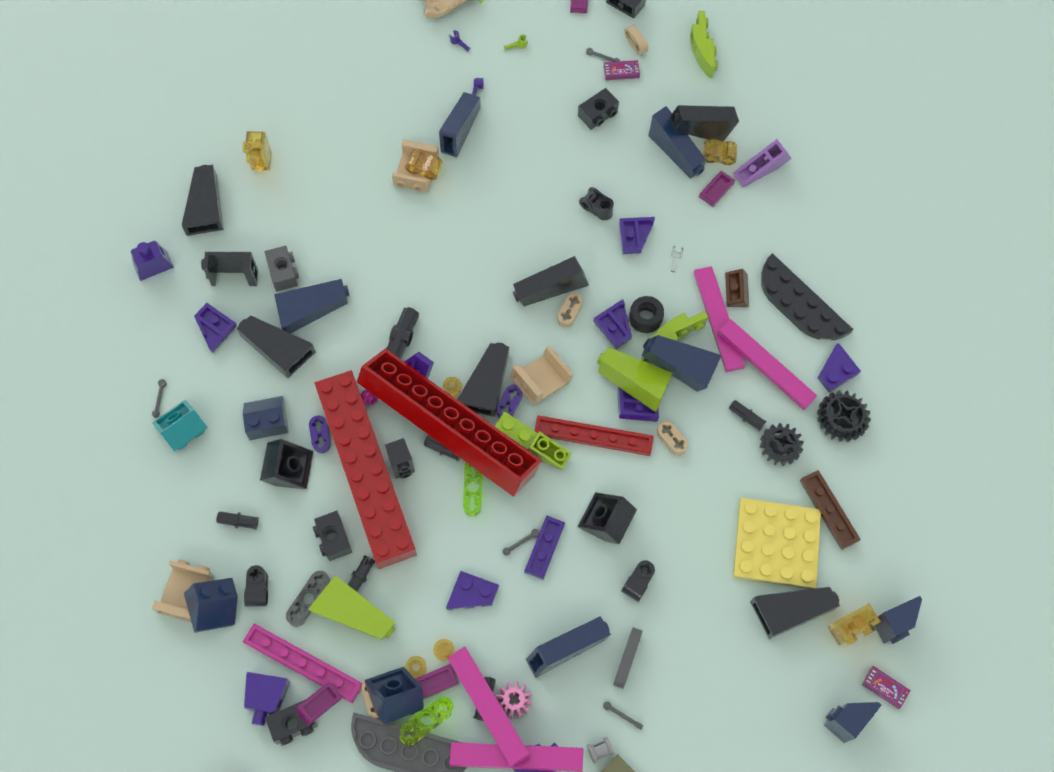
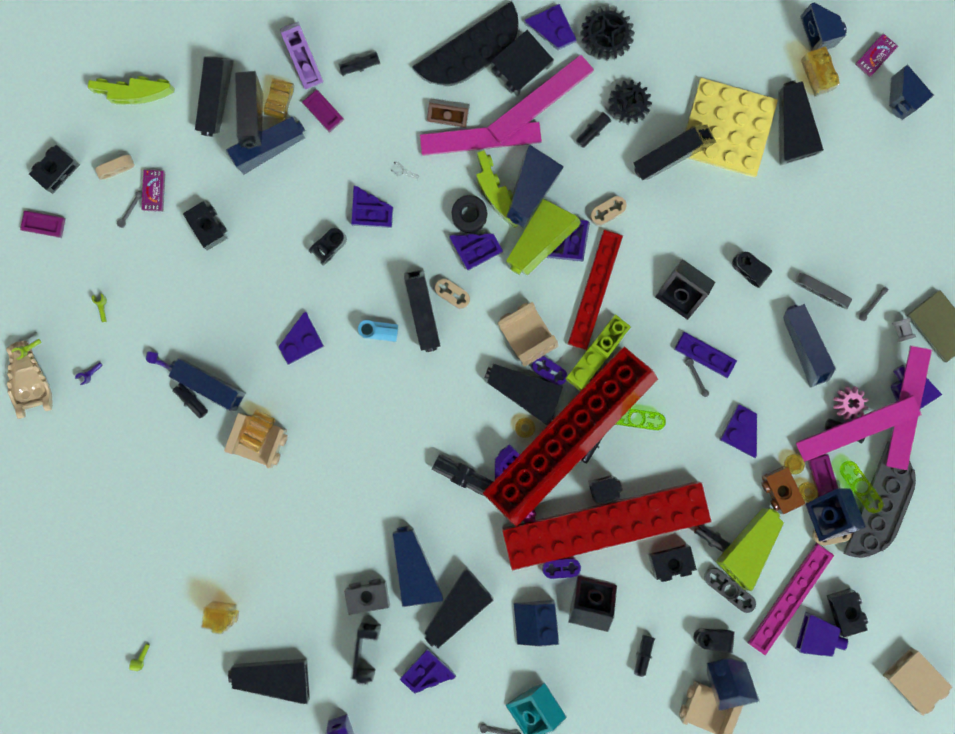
camera: 85 degrees left, 20 degrees up
(213, 101) = (137, 665): none -> lime hand
(318, 703) = (837, 586): magenta tile -> none
(427, 633) = (791, 499): none -> dark orange brick
(443, 114) = (190, 401): none -> black axle
(509, 193) = (300, 340): none -> dark purple wing
(526, 252) = (381, 331): none -> medium azure piece
(716, 95) = (213, 94): none -> black slope
(743, 487) = (674, 152): none -> black slope
(765, 211) = (359, 63): none -> black pin
(798, 341) = (521, 62): none -> black panel
(830, 510) = (702, 68): reddish brown plate -> none

